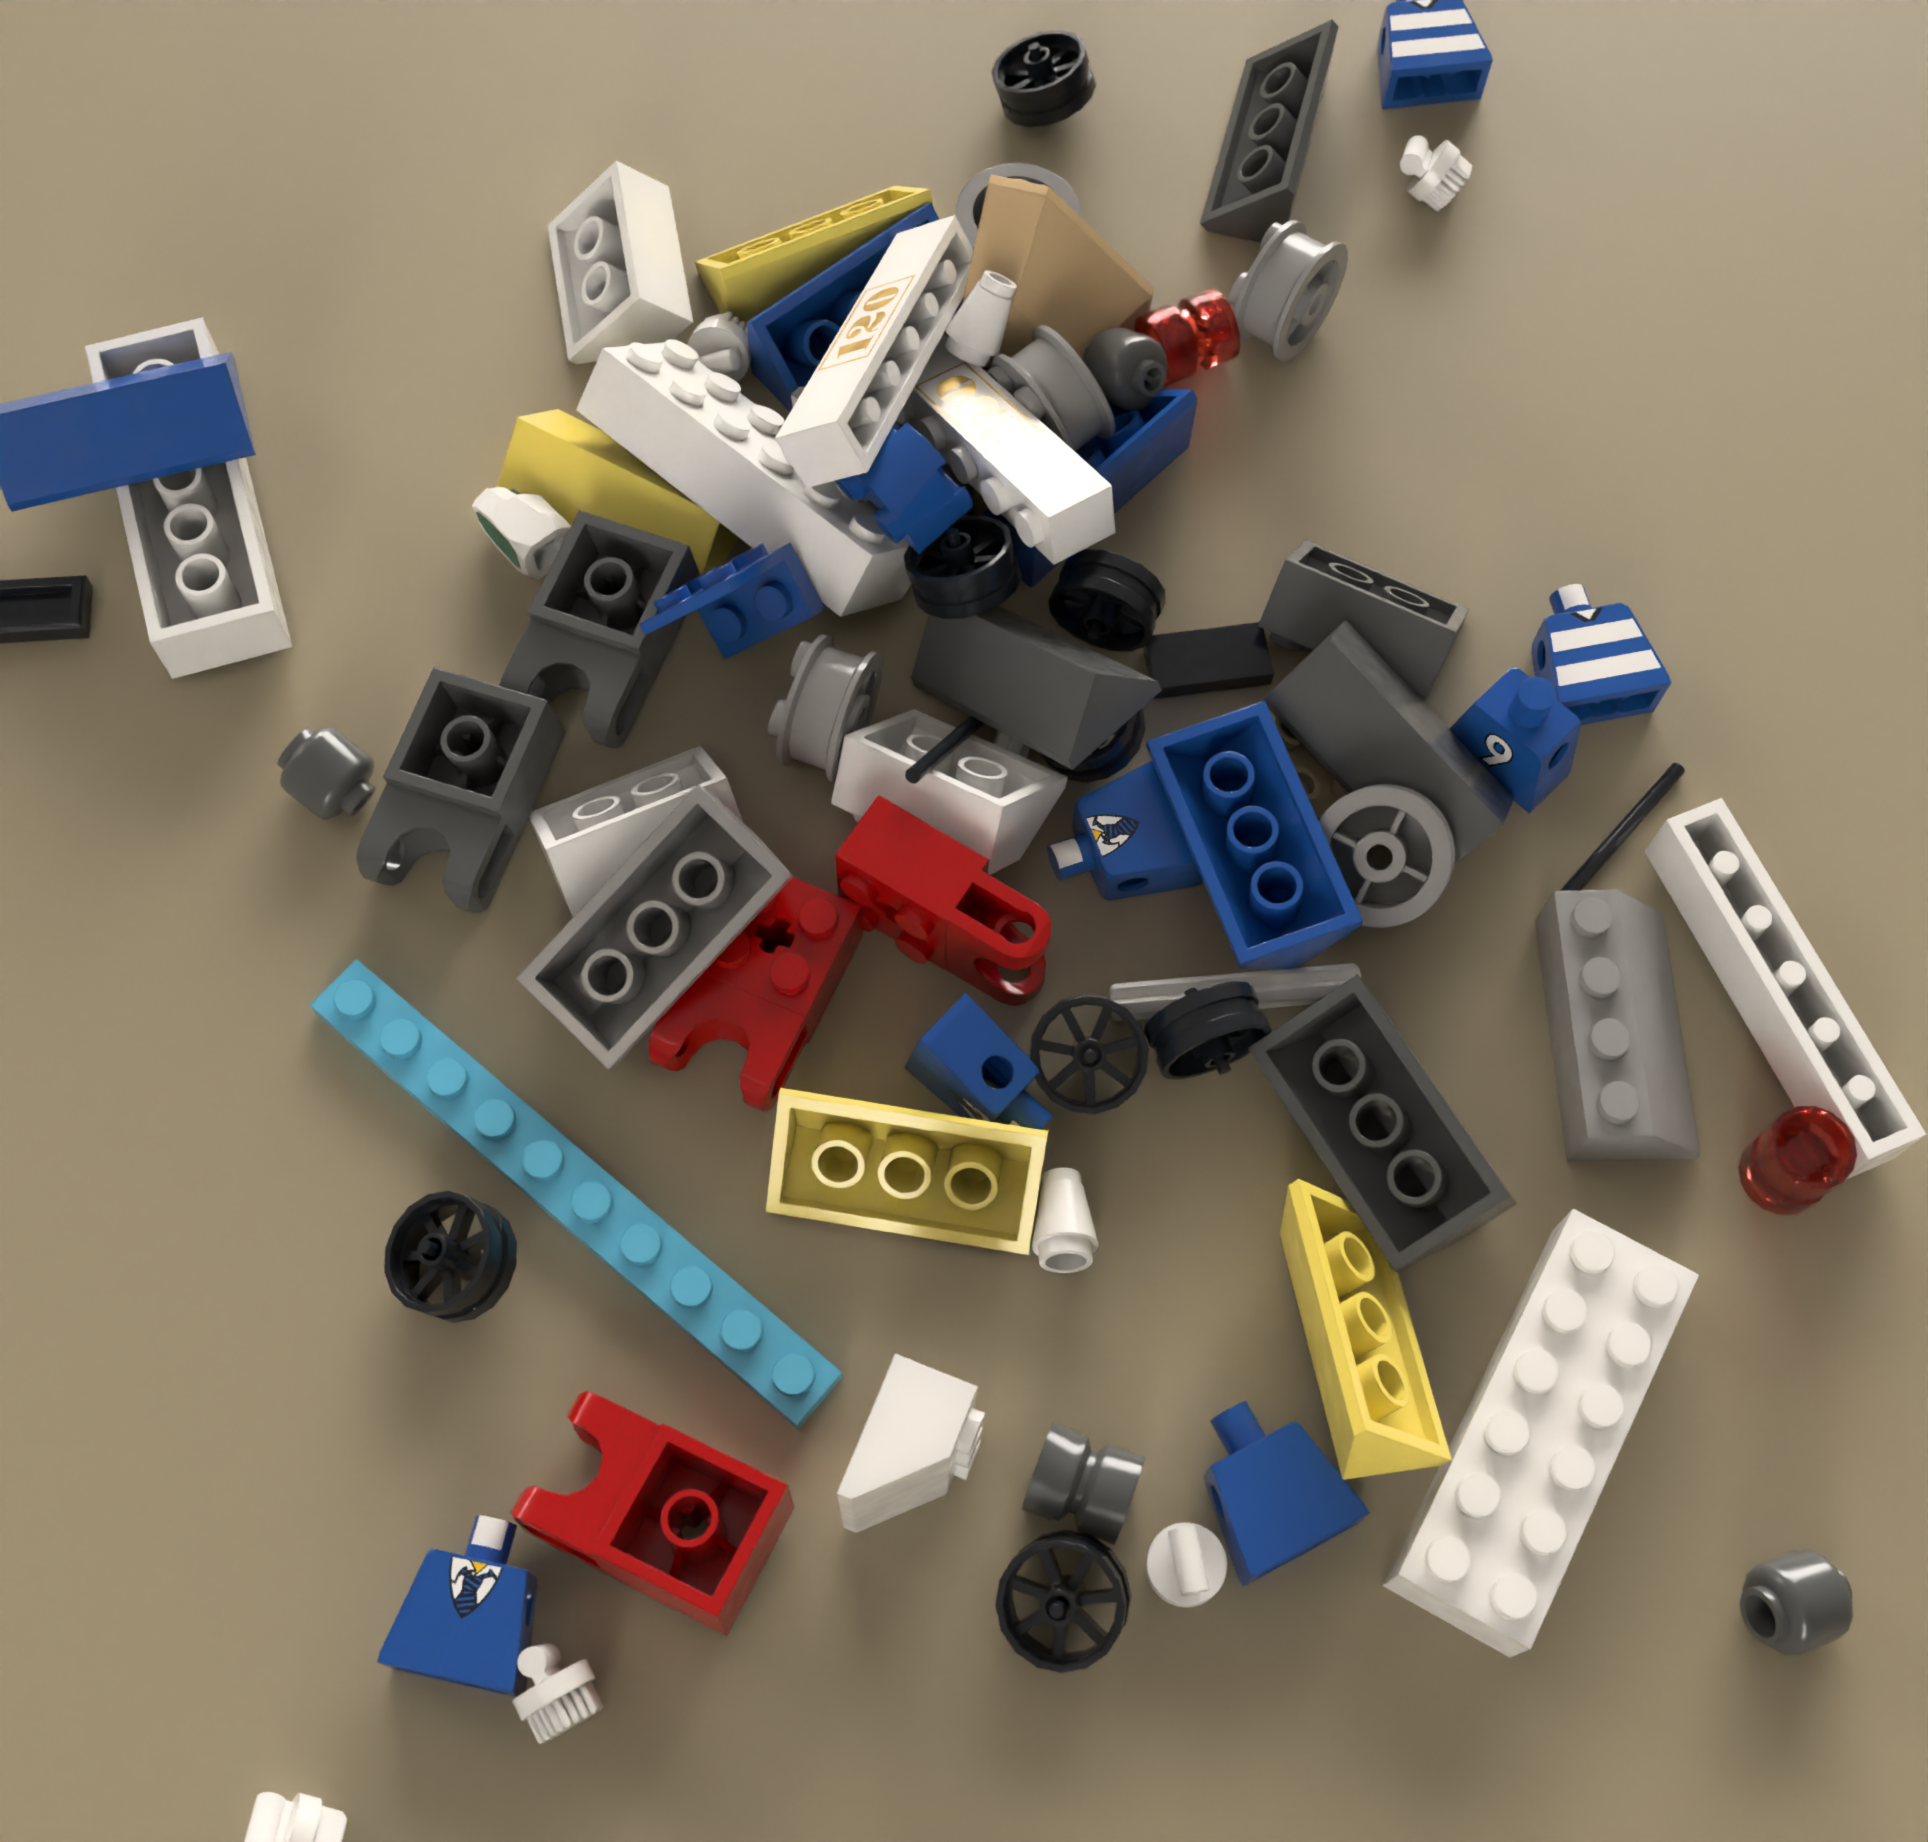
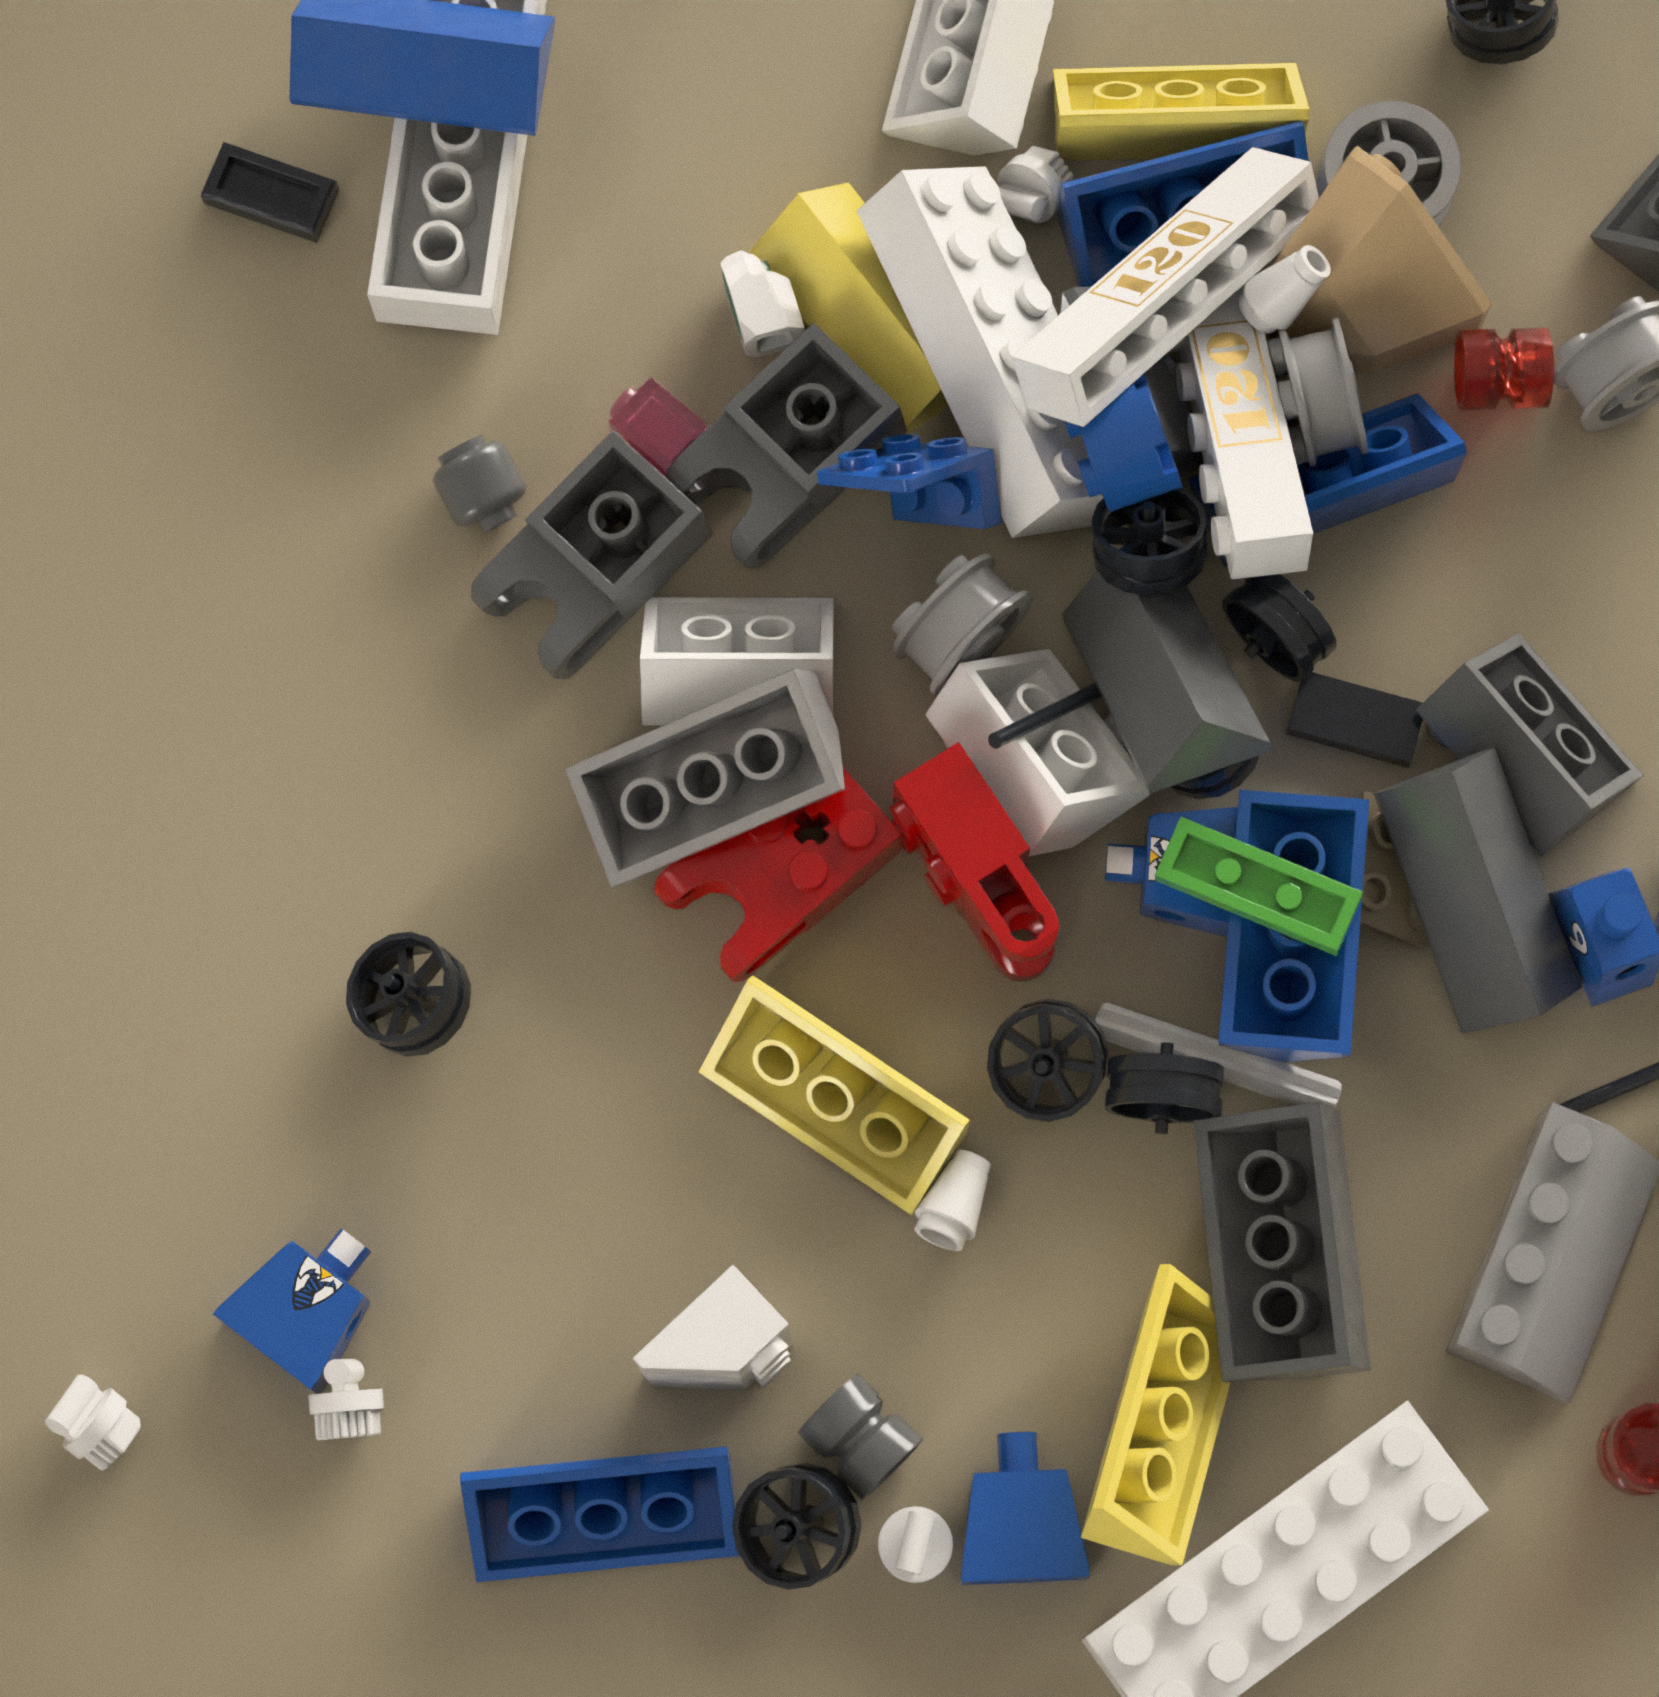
camera: 30 degrees right, 10 degrees up
(471, 650) = (655, 423): none -> clear pink brick
(579, 1195) = (540, 978): medium azure plate -> none
(643, 1498) = (481, 1280): red brick -> none
(862, 1682) = (600, 1514): none -> blue slope
(970, 1048) = (933, 1007): blue torso -> none
(1127, 367) = (1417, 379): dark grey head -> none
(1209, 808) = (1258, 886): none -> bright green plate
(1419, 846) = (1446, 987): light grey wheel -> none

